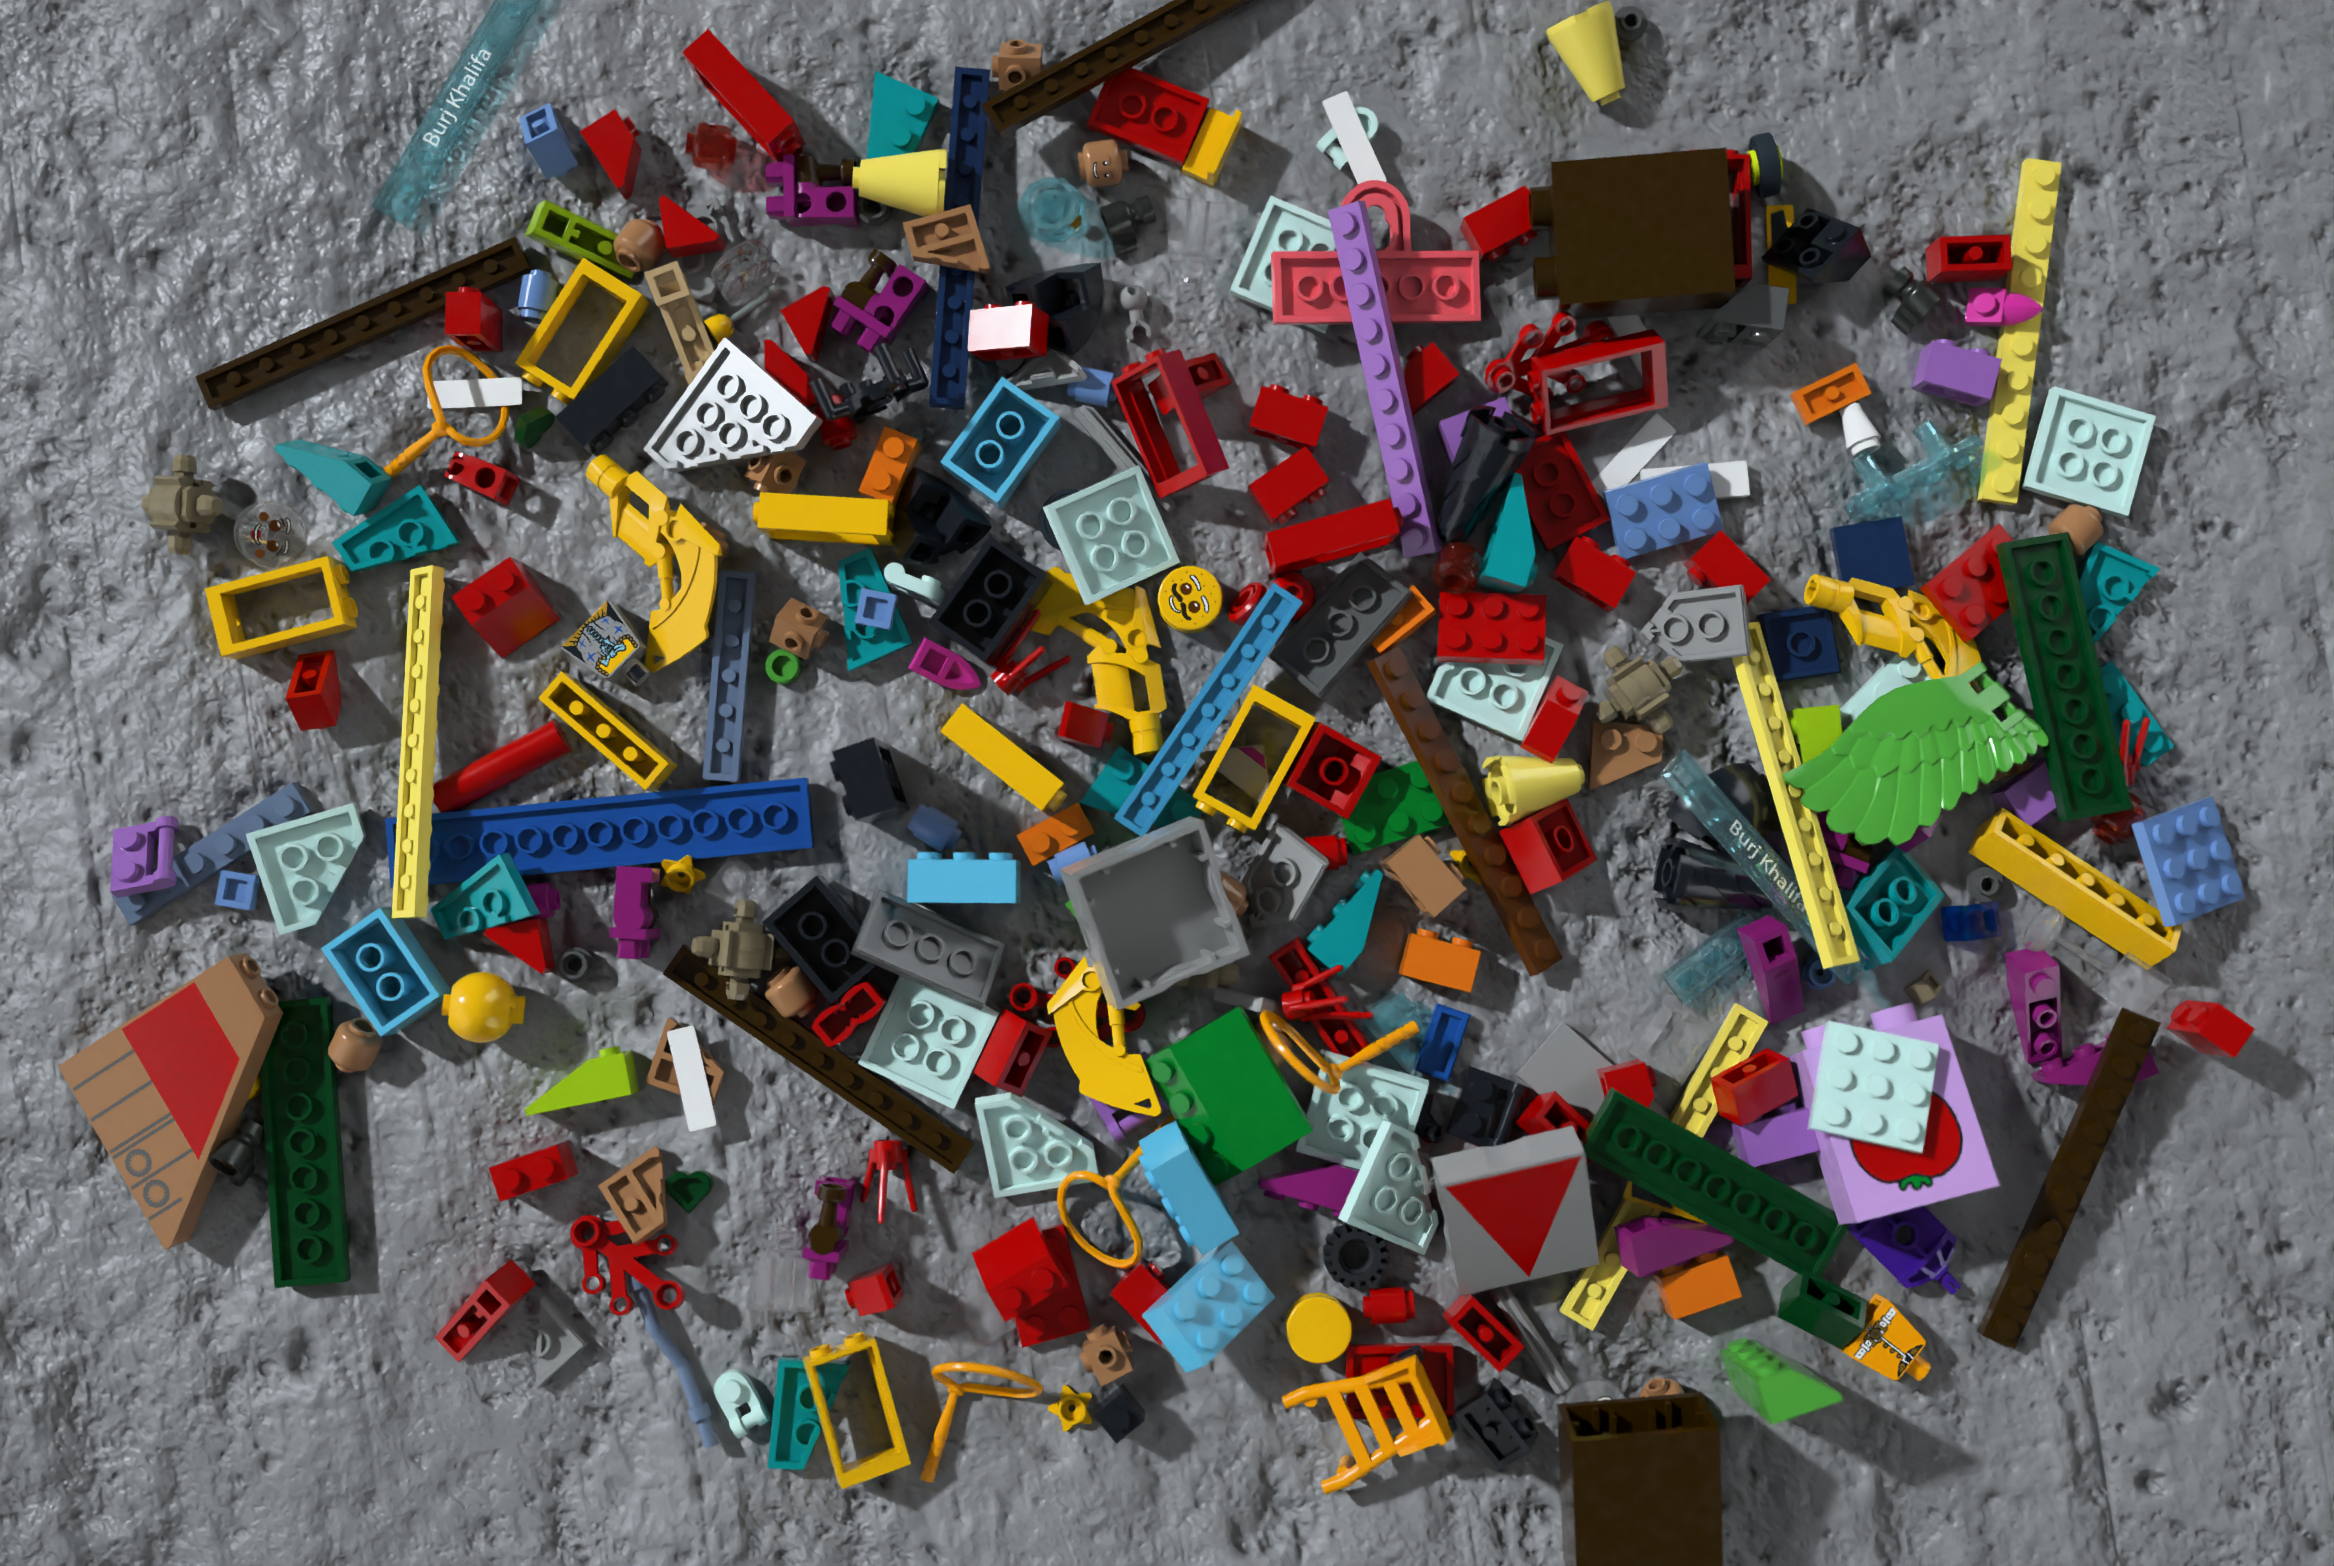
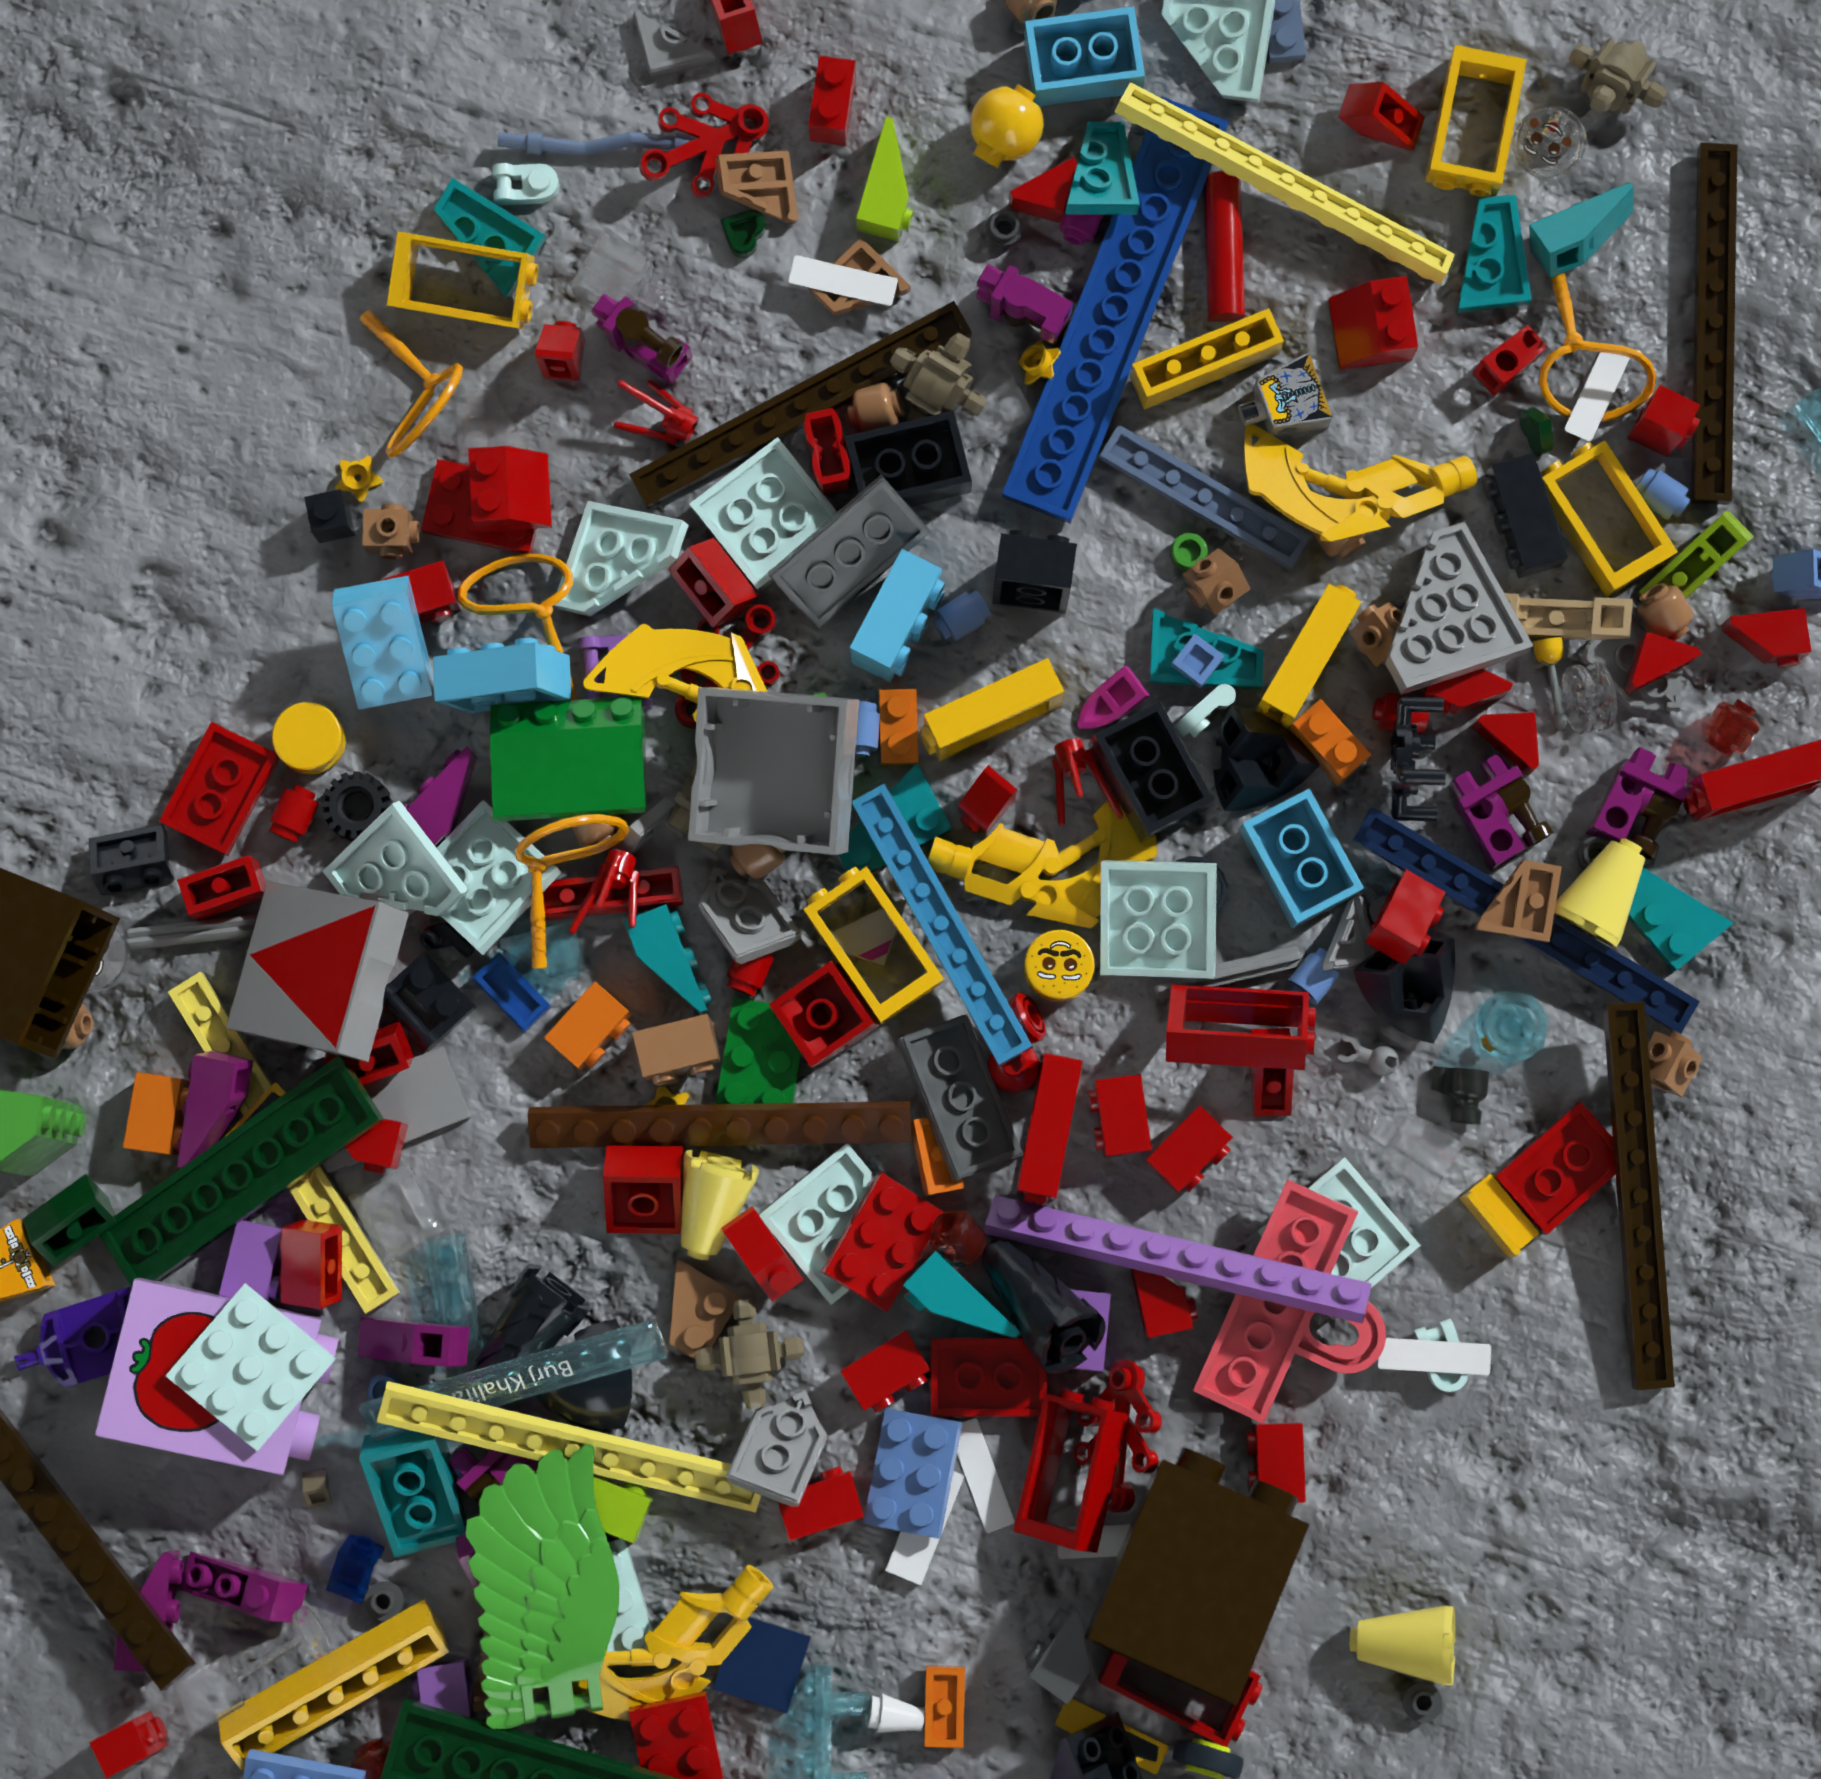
camera: 115 degrees right, 5 degrees down
(1102, 163) = (1532, 1096): medium nougat head -> none
(1403, 1369) = (226, 795): light orange hand -> none
(1800, 643) = (713, 1542): dark blue tile -> none

